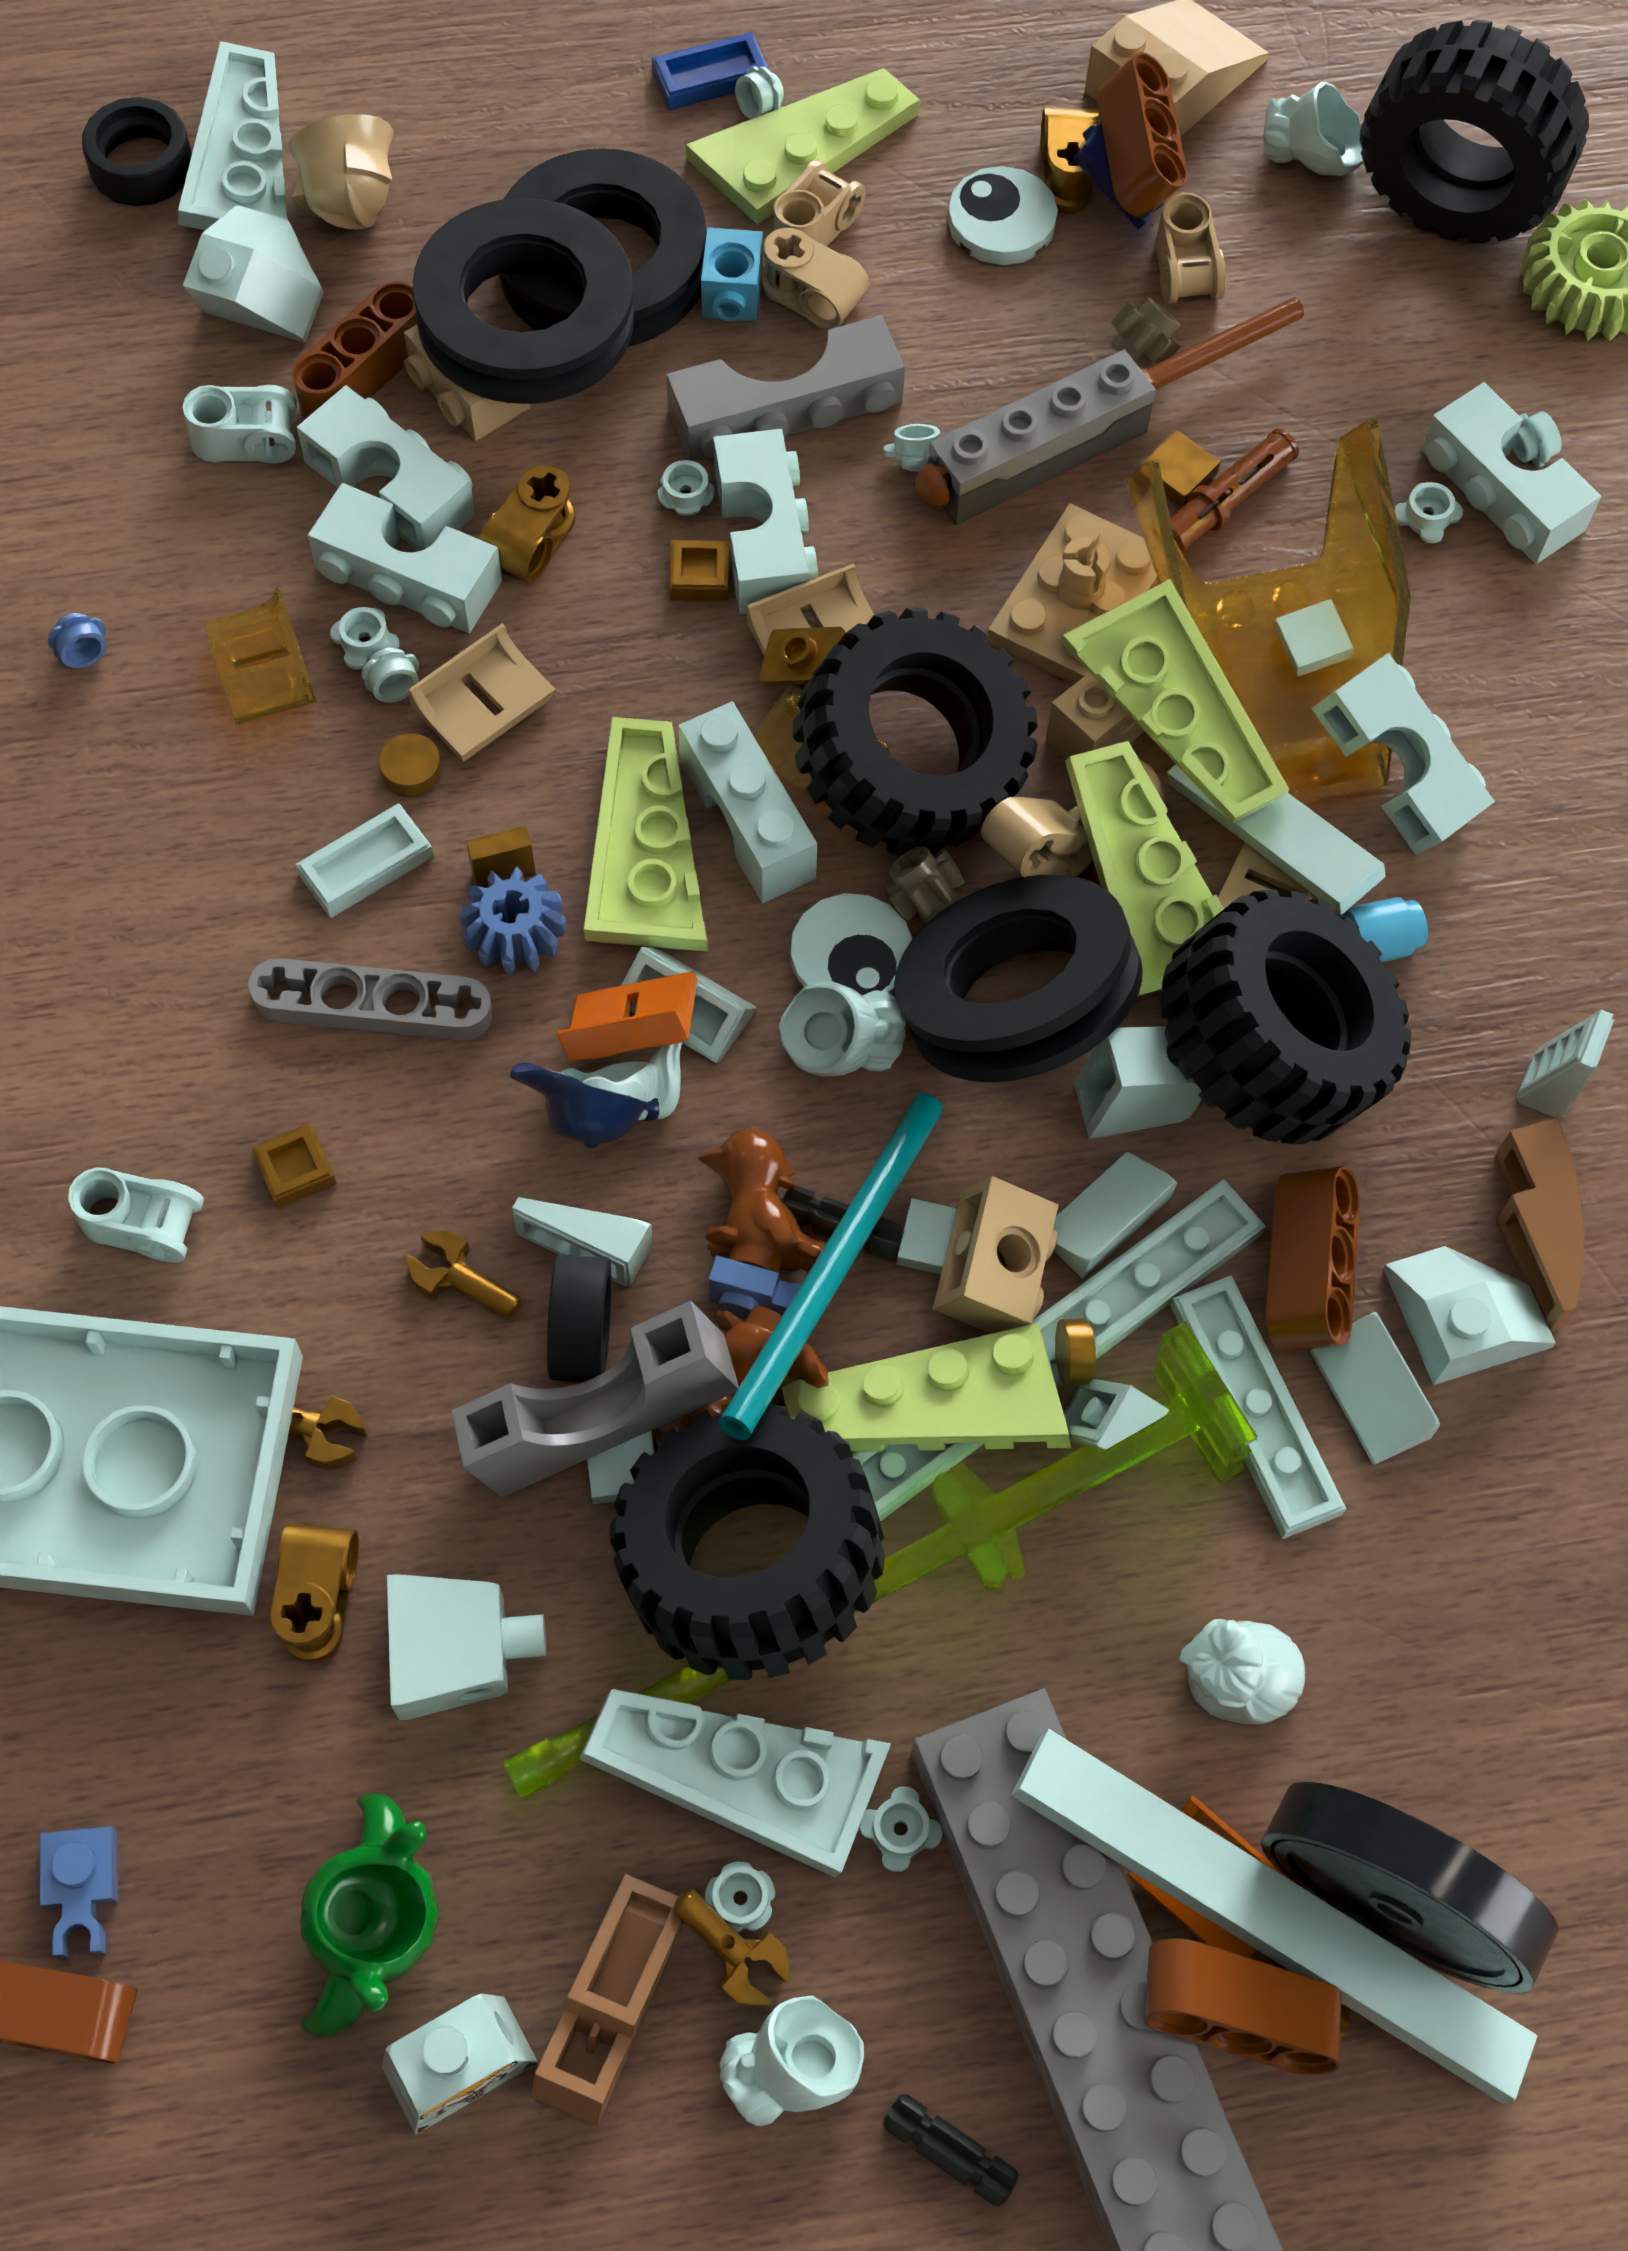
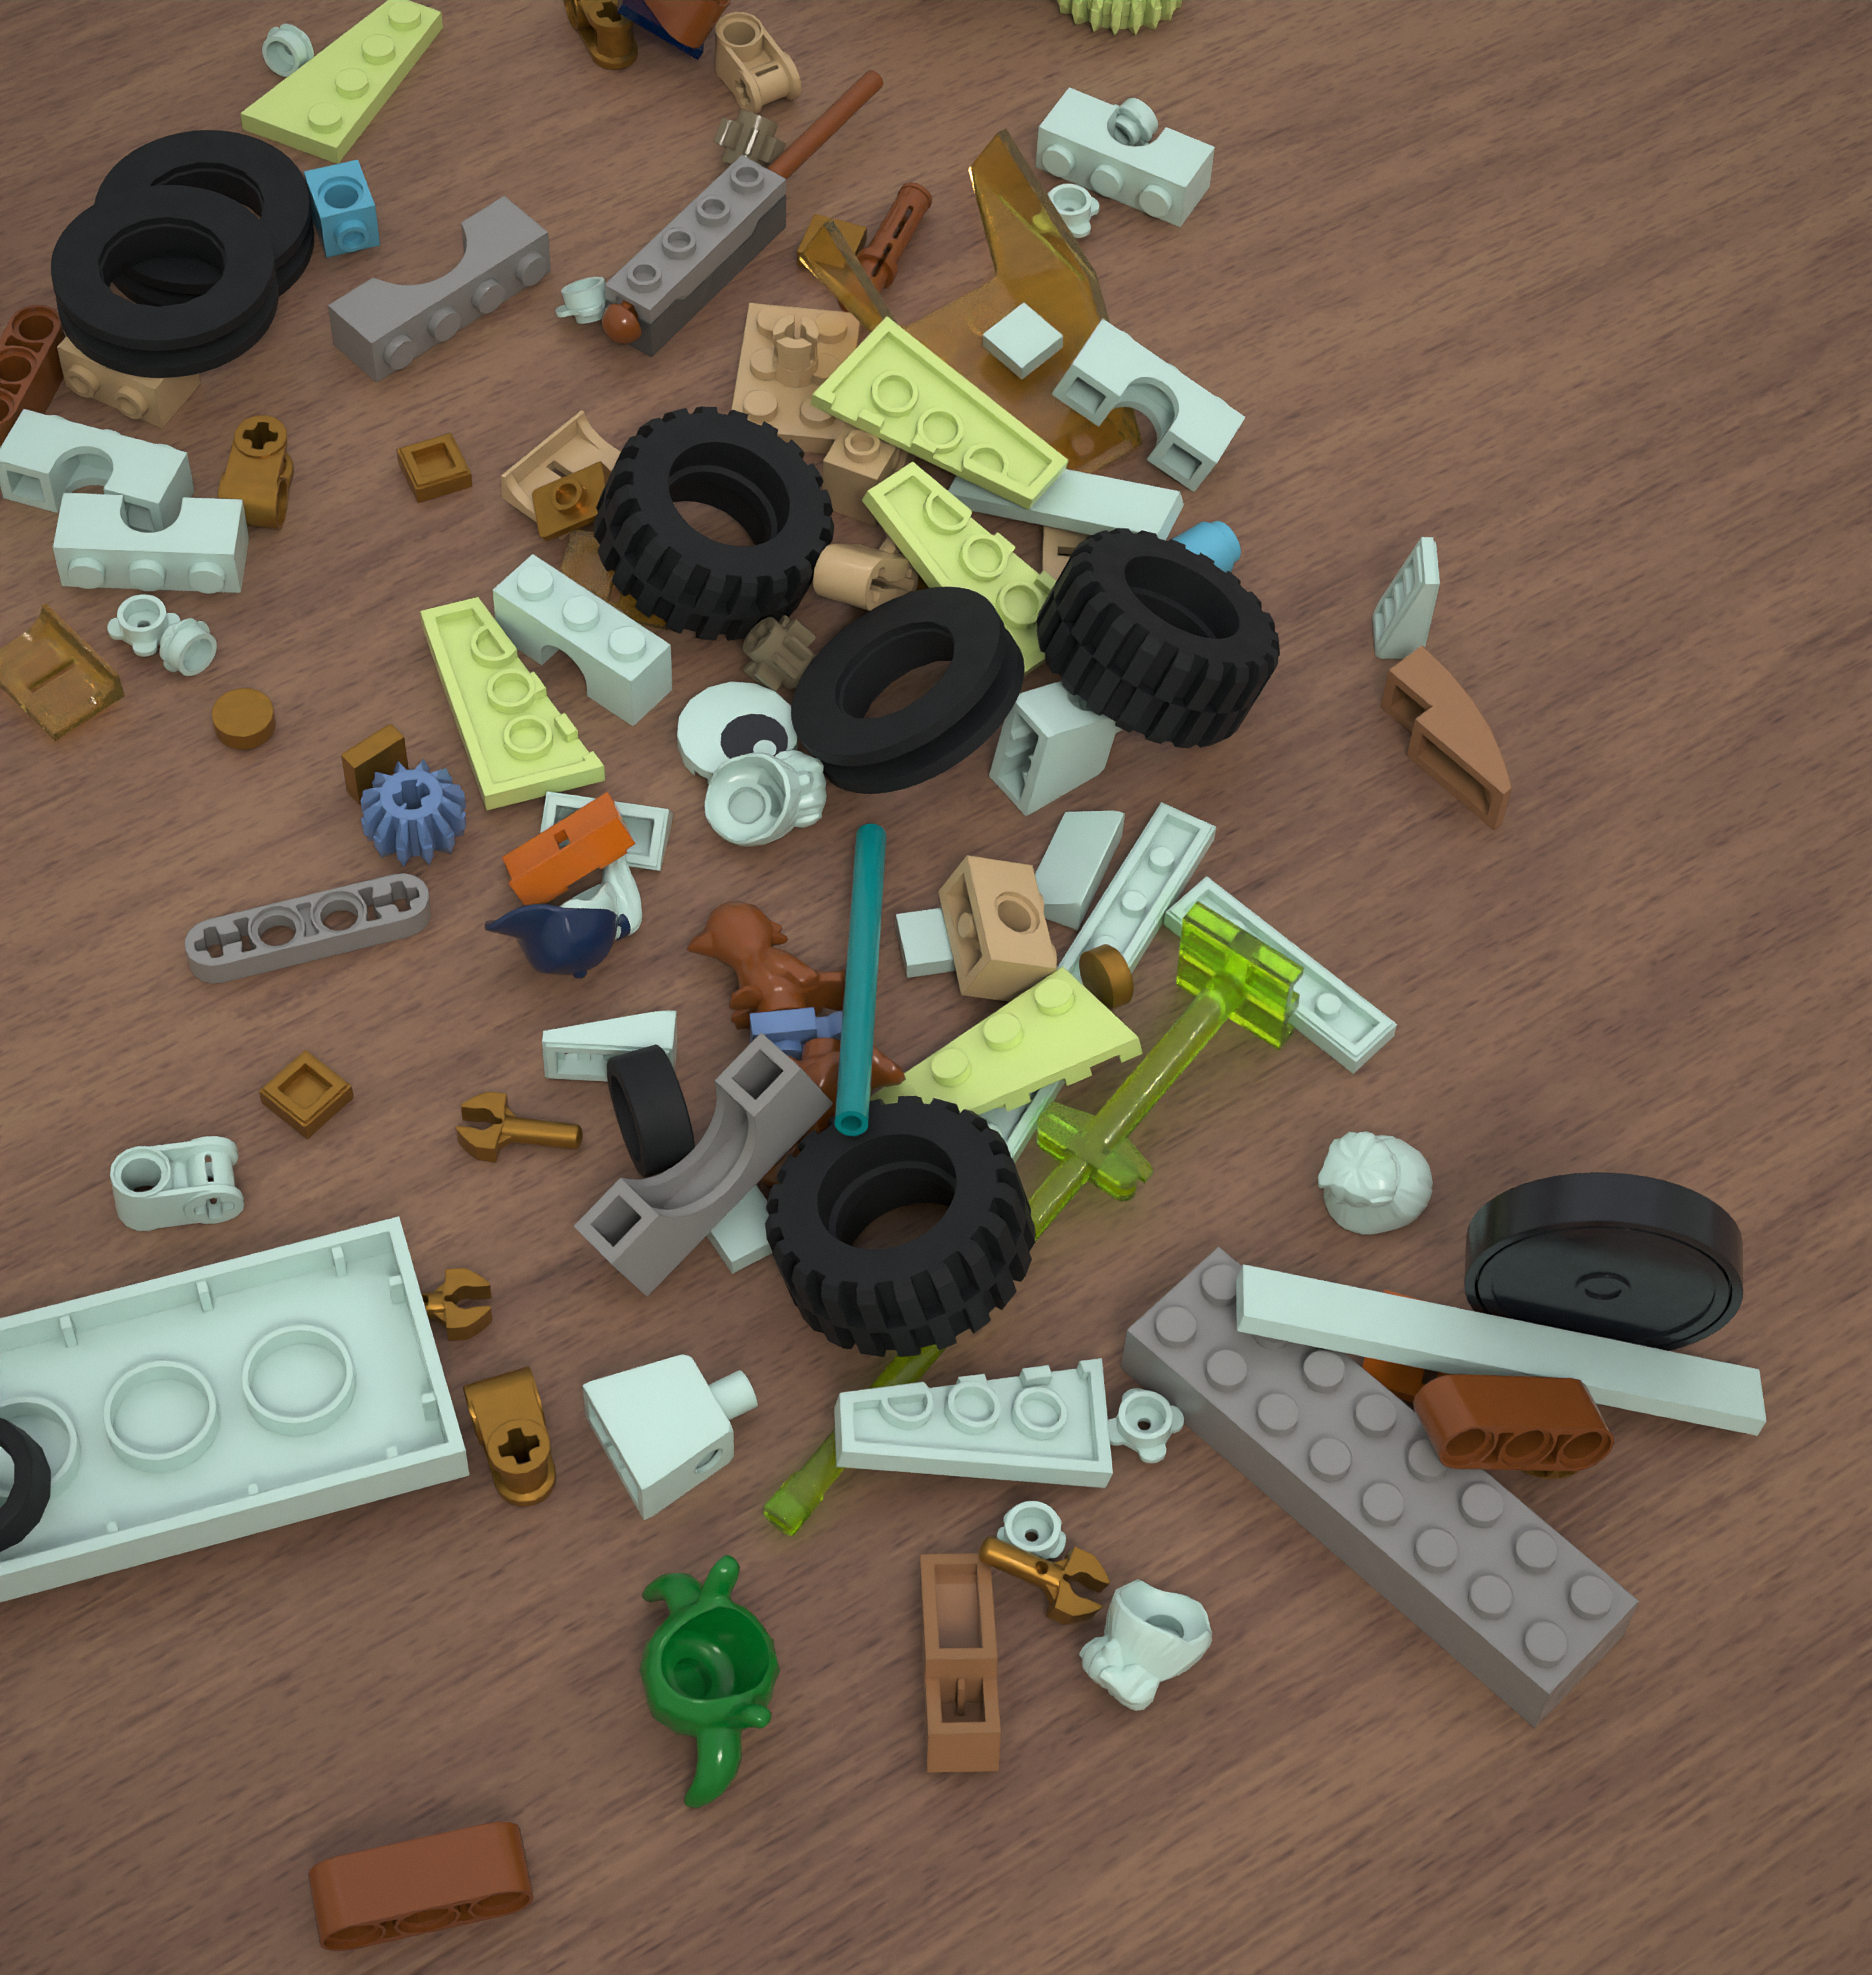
camera: 25 degrees left, 10 degrees down
(78, 1875) = (412, 1765): medium blue plate -> none
(364, 860) = (240, 815): light aqua tile -> none
(456, 2059) = (850, 1752): light aqua torso -> none
(500, 674) = (292, 613): tan piece -> none
(685, 476) = (387, 401): light aqua plate -> none
(705, 70) = (224, 47): blue tile -> none
(758, 482) = (457, 371): light aqua arch -> none
(814, 283) = (421, 191): tan piece -> none
(819, 204) = (391, 136): tan piece -> none
(828, 1212) = (832, 955): pearl dark grey axle -> none
(951, 2150) = (1317, 1661): pearl dark grey axle -> none
(1002, 215) = (565, 86): light aqua tile -> none
(1109, 1413) = (1165, 1006): light aqua slope -> none
(1313, 1259) = (1271, 834): dark orange beam -> none
(1377, 1390) = (1374, 920): light aqua slope -> none
(1465, 1313) = (1418, 837): light aqua slope -> none

